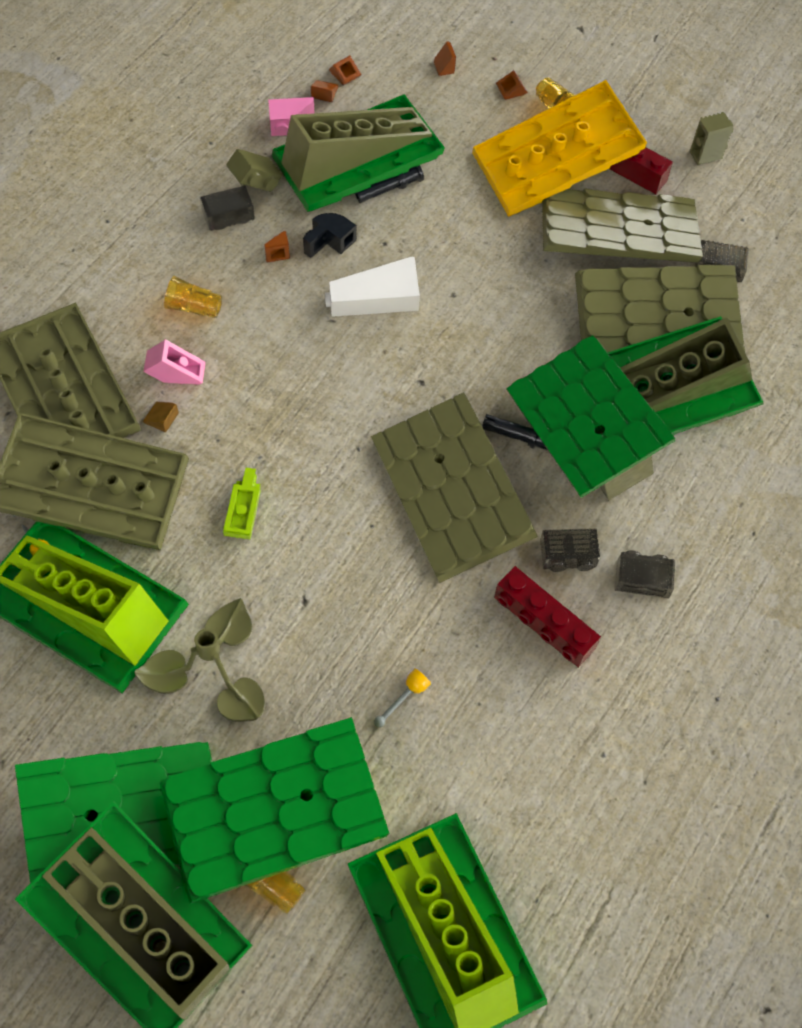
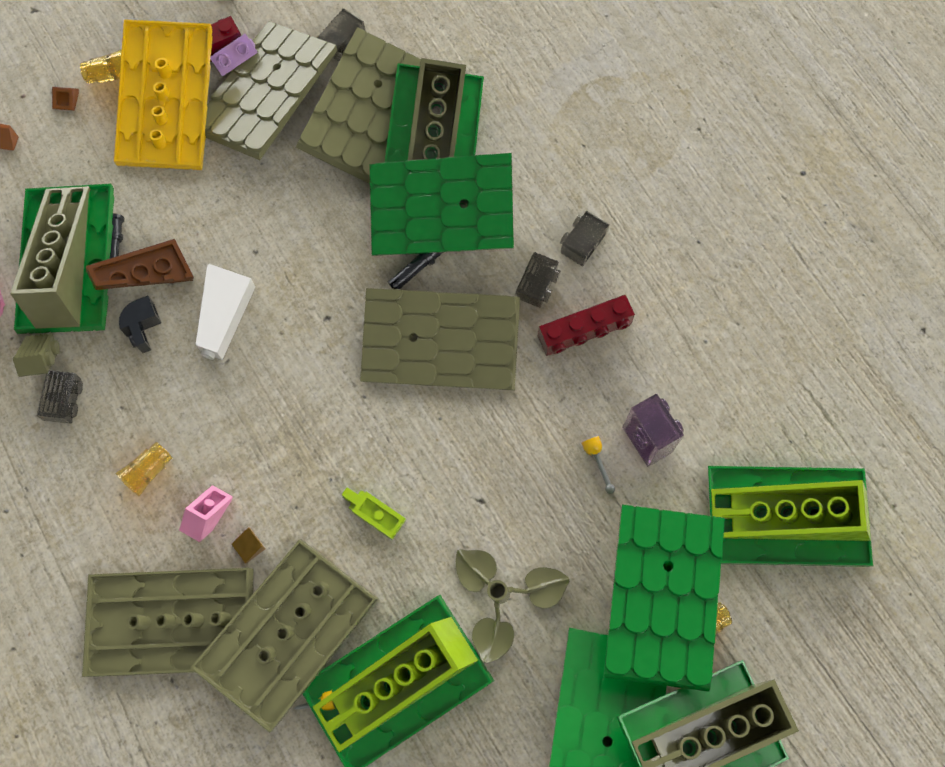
camera: 60 degrees left, 10 degrees up
(277, 248) = (131, 371): dark orange slope -> none
(382, 211) = (146, 266): none -> reddish brown wing
(458, 725) = (653, 429): none -> clear purple brick
(638, 184) = (234, 54): none -> lavender hinge

